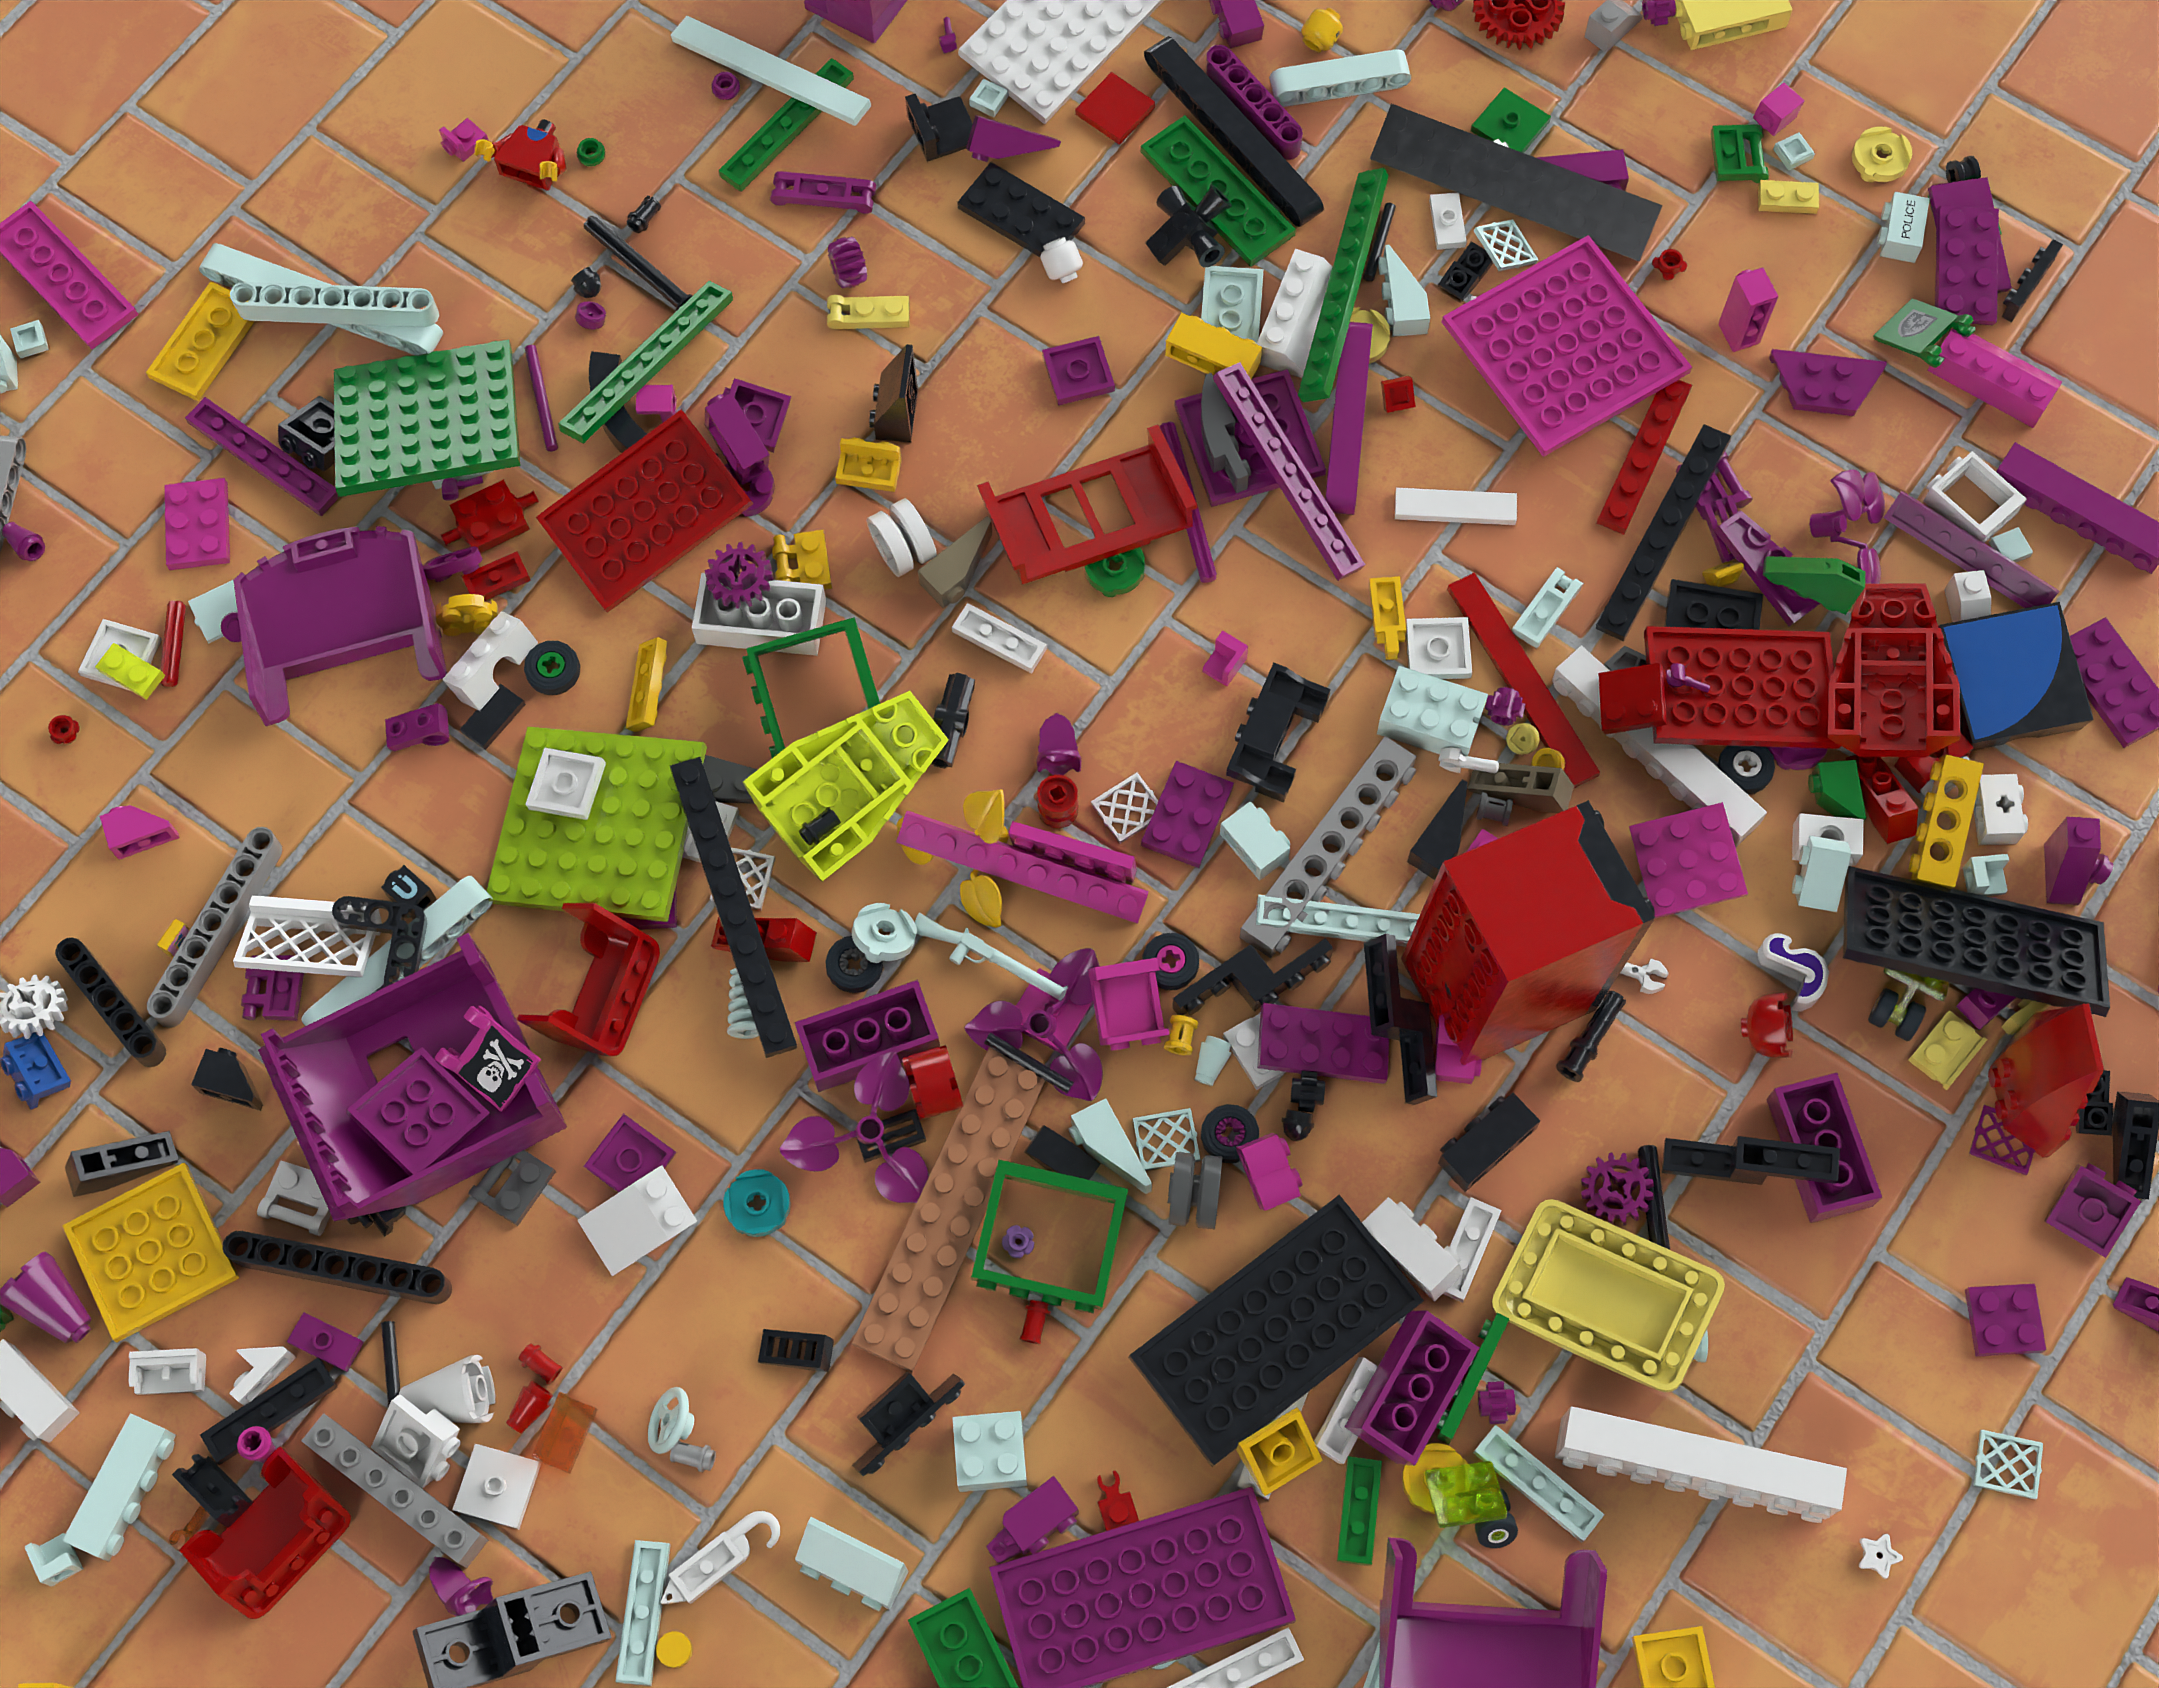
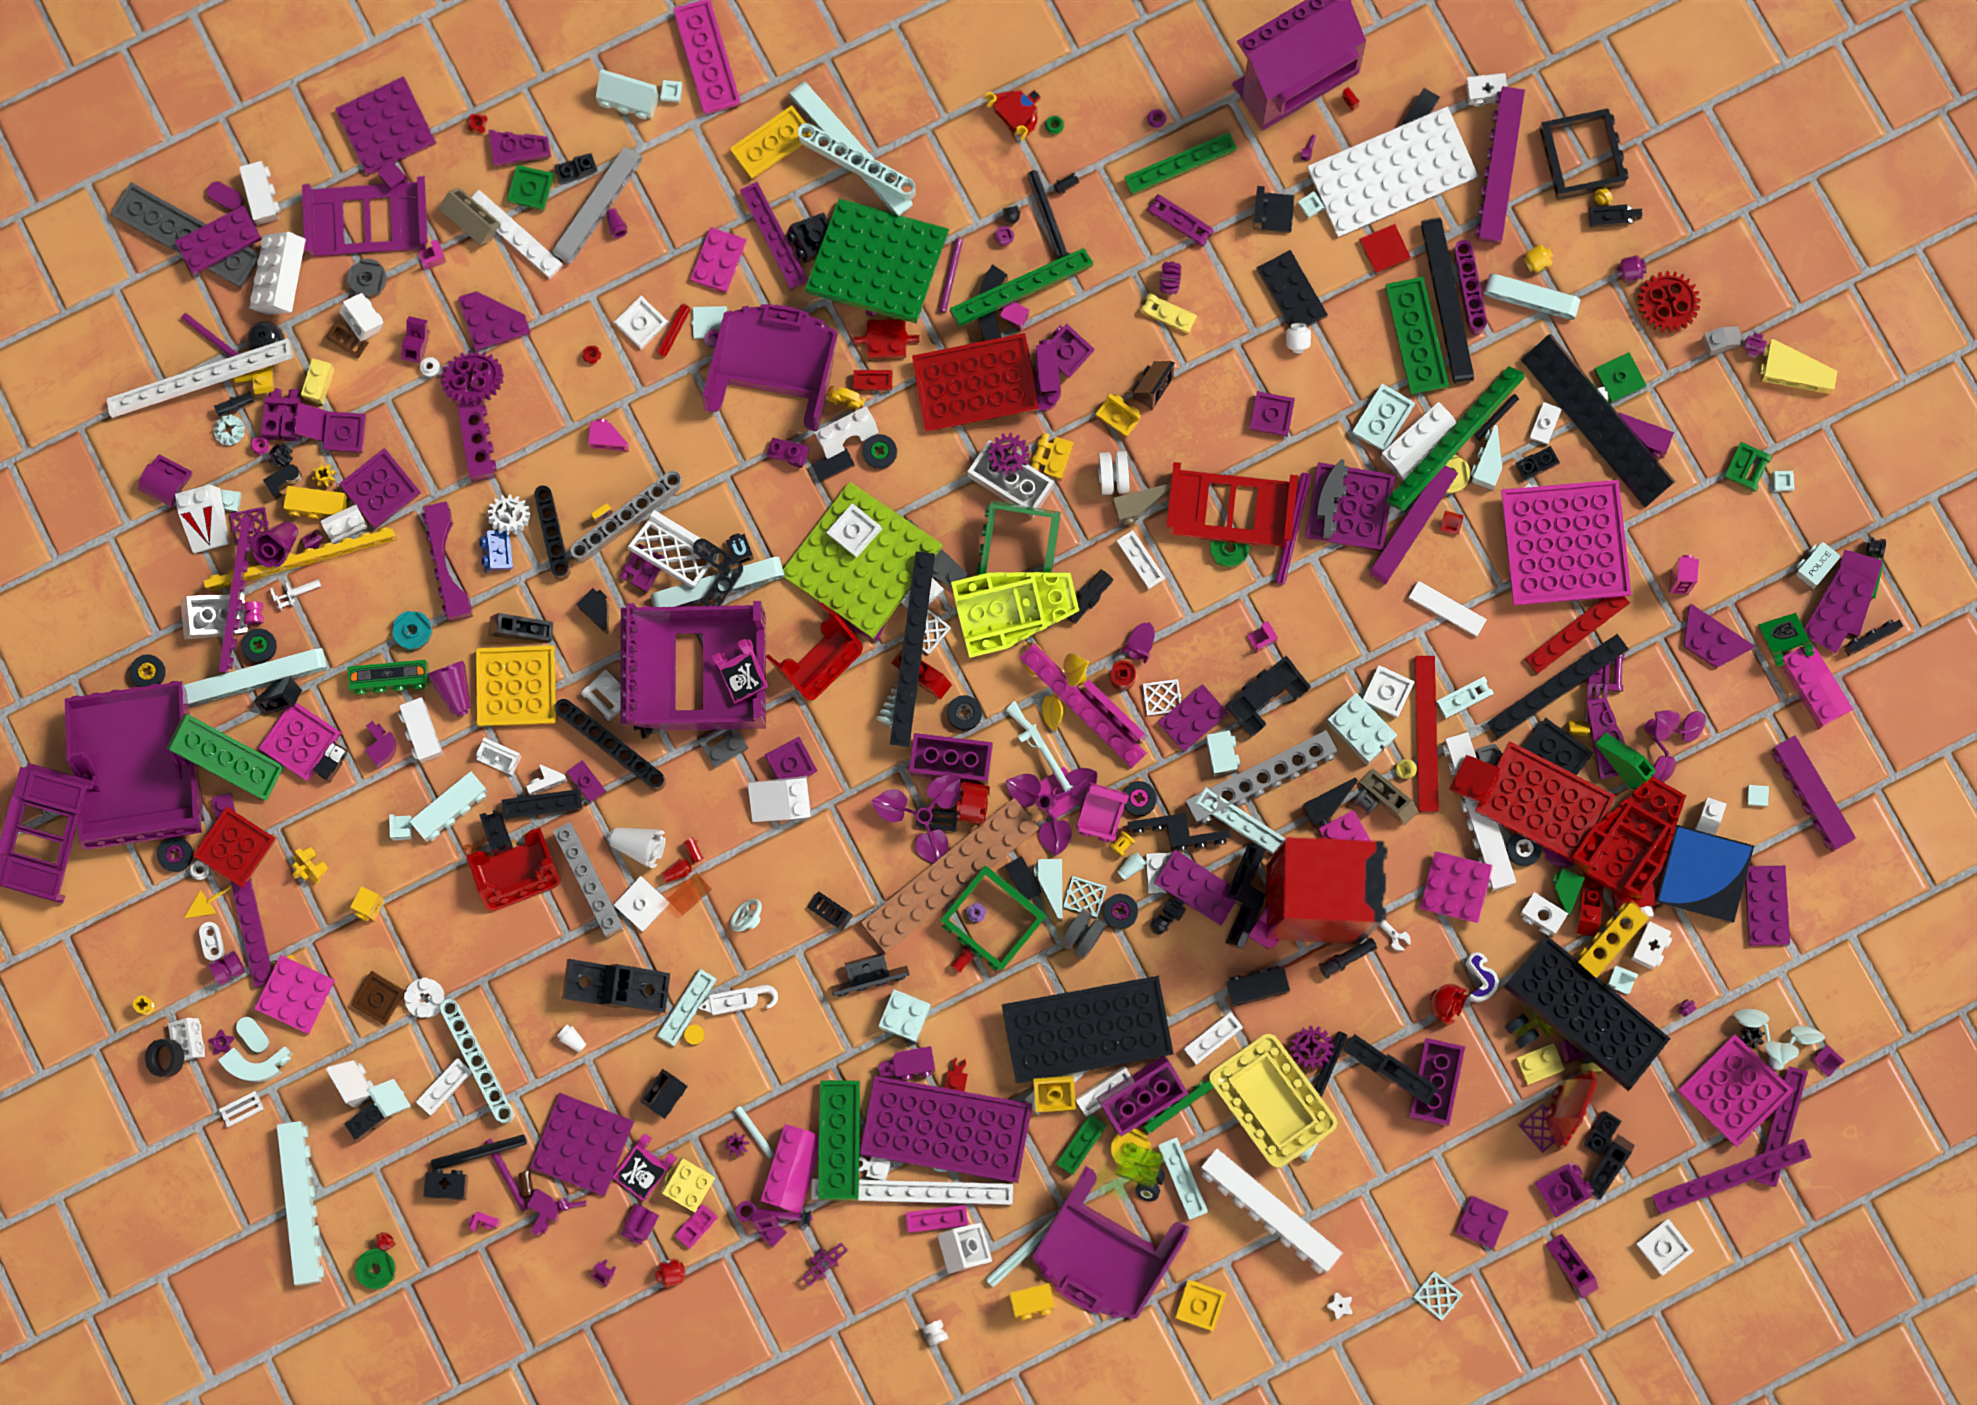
camera: 30 degrees right, 10 degrees up
(130, 671) = (643, 338): neon yellow plate -> none
(255, 1444) = (526, 817): dark pink cone -> none
(390, 1359) = (614, 814): black bar -> none
(416, 1441) = (611, 861): white plate -> none
(418, 1113) = (690, 683): magenta plate -> none
(444, 566) = (852, 360): magenta plate -> none
(456, 1589) = (597, 947): magenta piece -> none
(461, 139) = (982, 78): dark pink bracket -> none
(646, 684) = (927, 489): yellow plate -> none
(693, 1455) = (752, 941): light grey pin -> none
(742, 1191) = (849, 832): teal plate -> none
(771, 70) = (1187, 123): light aqua tile -> none
(819, 826) = (982, 625): black pin -> none
(850, 1565) = (804, 1038): light aqua slope -> none
(879, 946) = (995, 697): light aqua plate -> none
(1001, 140) = (1305, 241): magenta slope -> none
(1029, 1062) = (1031, 817): black bar -> none
(1189, 226) = (1384, 354): black brick -> none
(1210, 347) = (1355, 443): yellow brick -> none
(1269, 1171) = (1129, 943): dark pink brick -> none
(1288, 471) = (1358, 542): plate -> none
(1388, 614) = (1370, 655): yellow hinge -> none
(1414, 1248) = (1183, 1023): white brick -> none
(1454, 760) = (1360, 763): white bar -> none
(1496, 1402) = (1183, 1126): magenta gear -> none
(1505, 706) = (1405, 745): magenta gear -> none
(1519, 238) = (1570, 457): light aqua window -> none
(1548, 758) = (1412, 790): yellow tile -> none
(1671, 257) = (1666, 513): red plate -> none
(1677, 678) = (1507, 780): magenta hand -> none
(1778, 109) = (1786, 451): dark pink brick -> none
(1788, 196) = (1761, 509): light yellow plate -> none
(1822, 873) = (1526, 932): light aqua brick -> none
(1876, 168) = (1828, 501): light yellow plate -> none
(1969, 552) = (1729, 788): magenta plate -> none
(1989, 482) = (1754, 733): white window -> none
(2071, 859) = (1670, 996): magenta slope -> none

